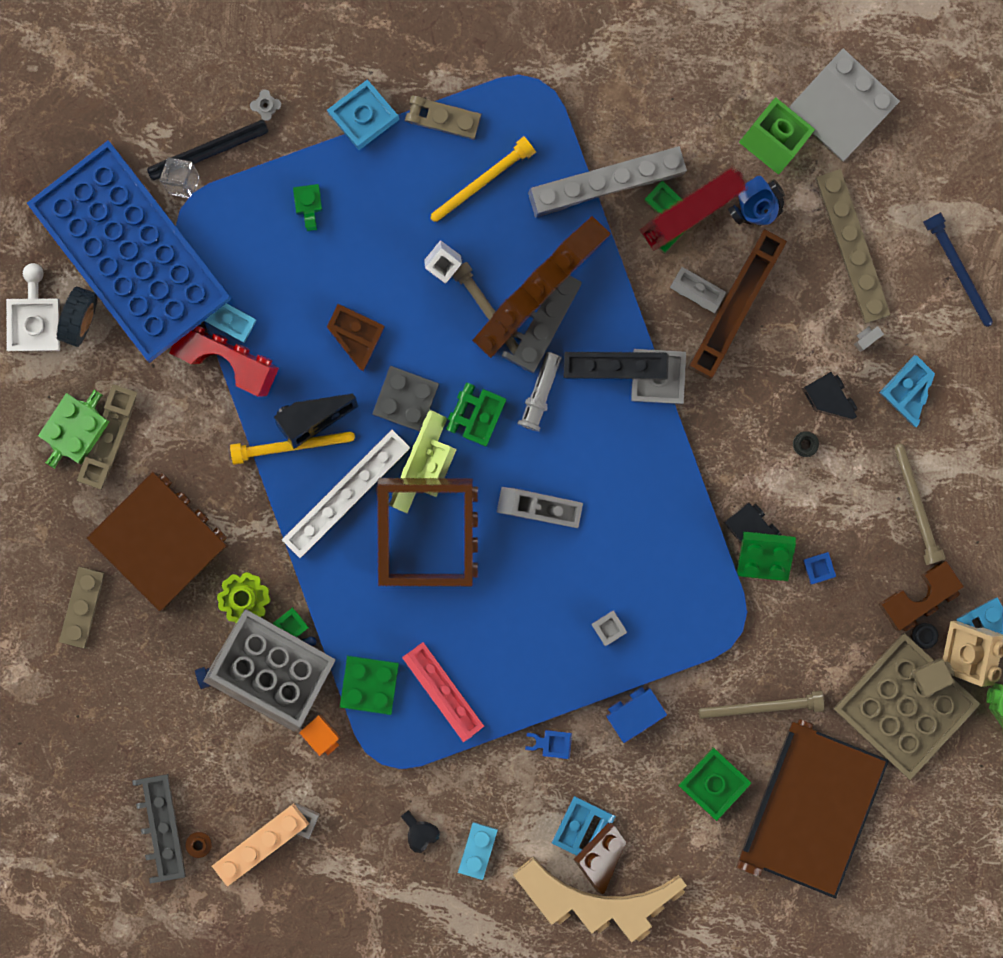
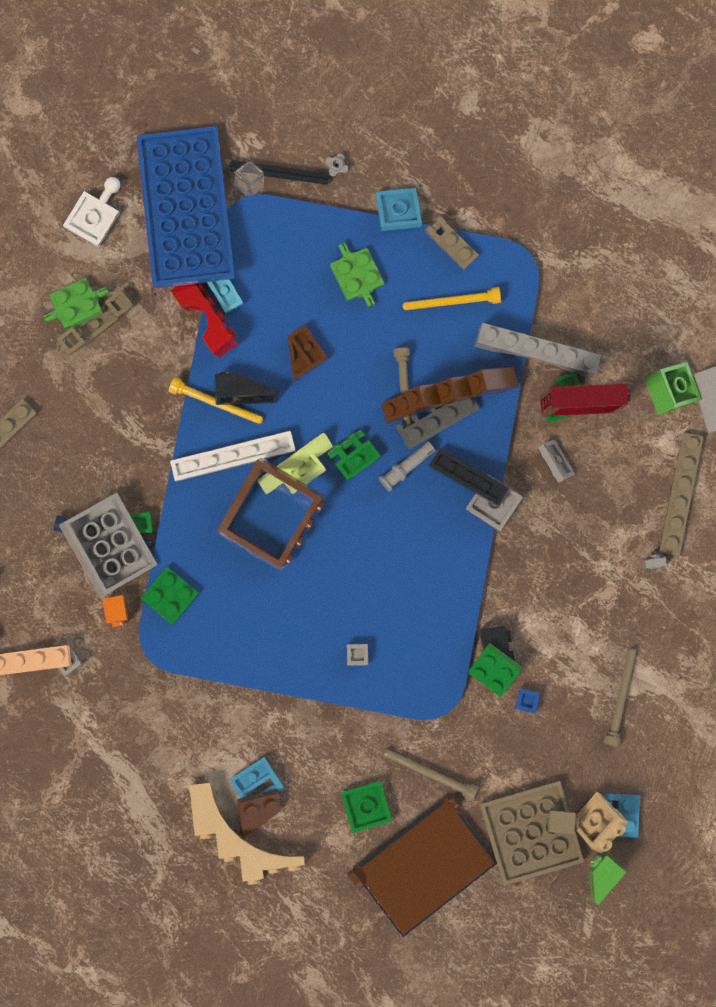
camera: 35 degrees right, 5 degrees down
(76, 316) = (123, 229): black wheel -> none
(158, 540) = (86, 412): reddish brown panel -> none
(243, 594) = (123, 482): lime plant -> none
(308, 202) = (325, 246): green plate -> none
(361, 214) = (357, 274): none -> bright green plate
(405, 398) = (312, 416): dark grey plate -> none
(420, 833) = (143, 719): black rock -> none
(443, 261) = (393, 338): white brick -> none
(443, 692) = (217, 630): coral plate -> none
(477, 850) = (175, 755): medium azure plate -> none
(539, 507) = (359, 543): light grey slope -> none
(554, 744) = (271, 712): blue plate -> none
(636, 714) = (340, 726): blue brick -> none
(737, 304) = (577, 486): reddish brown arch -> none
(759, 202) = (633, 426): blue cap -> none
(814, 444) = (575, 610): pearl dark grey plate -> none
(828, 398) = (602, 587): black slope -> none
(909, 389) = (662, 615): dark azure wing -> none
(925, 635) = (573, 792): black plate -> none
(941, 586) = (605, 763): reddish brown arch -> none

